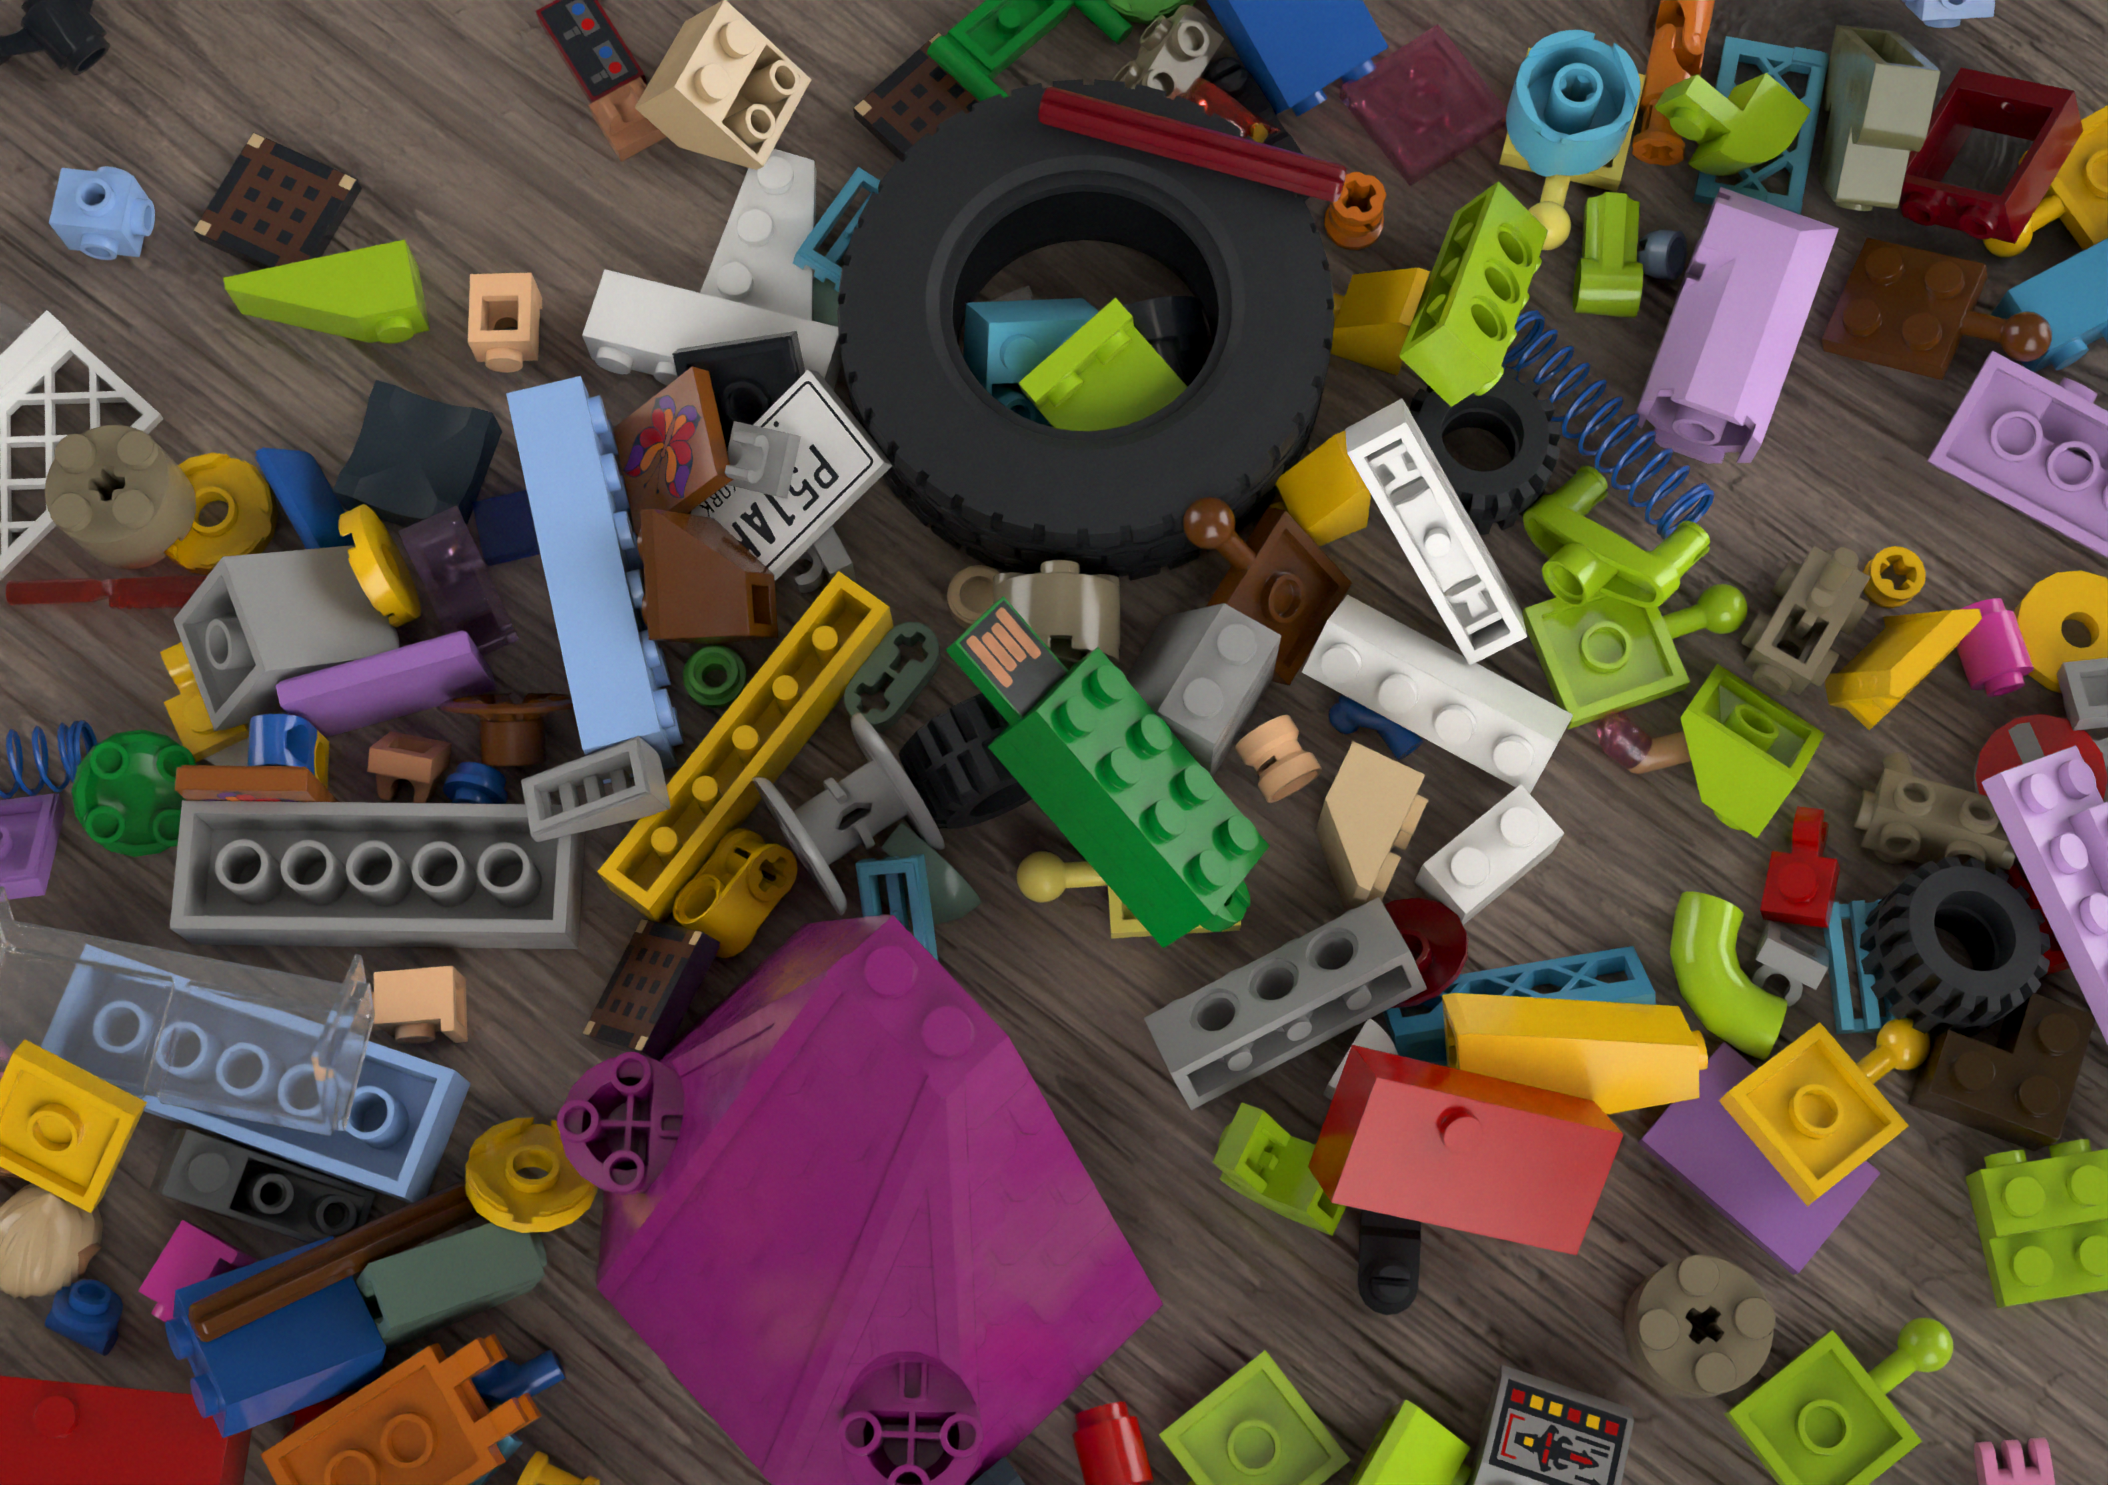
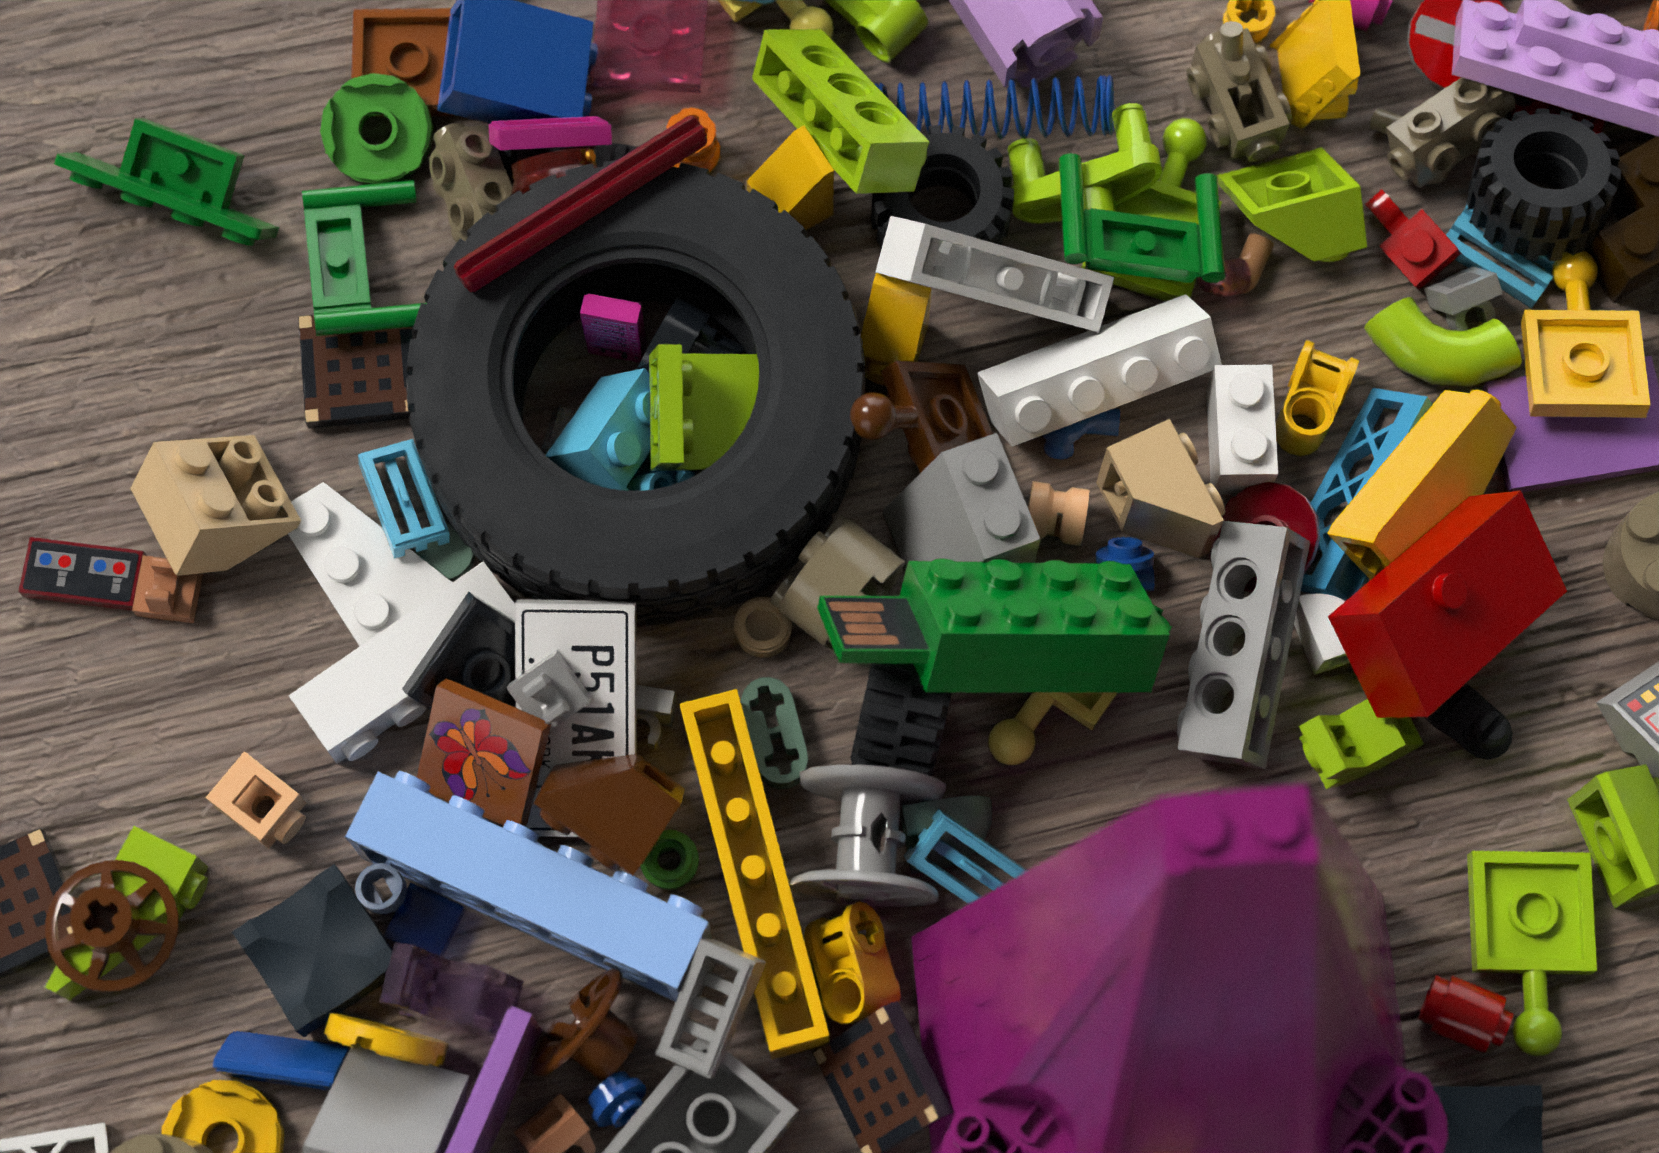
camera: 55 degrees left, 0 degrees up
(306, 281) = (109, 924): none -> reddish brown wheel
(494, 465) = (369, 894): none -> sand blue hinge
(1127, 263) = (613, 327): none -> dark pink tile
(1251, 85) = (549, 133): none -> dark pink tile
(1287, 856) = (1130, 551): none -> blue plate
(1580, 636) = (1139, 242): none -> green plate
(1587, 895) = (1316, 391): none -> yellow piece

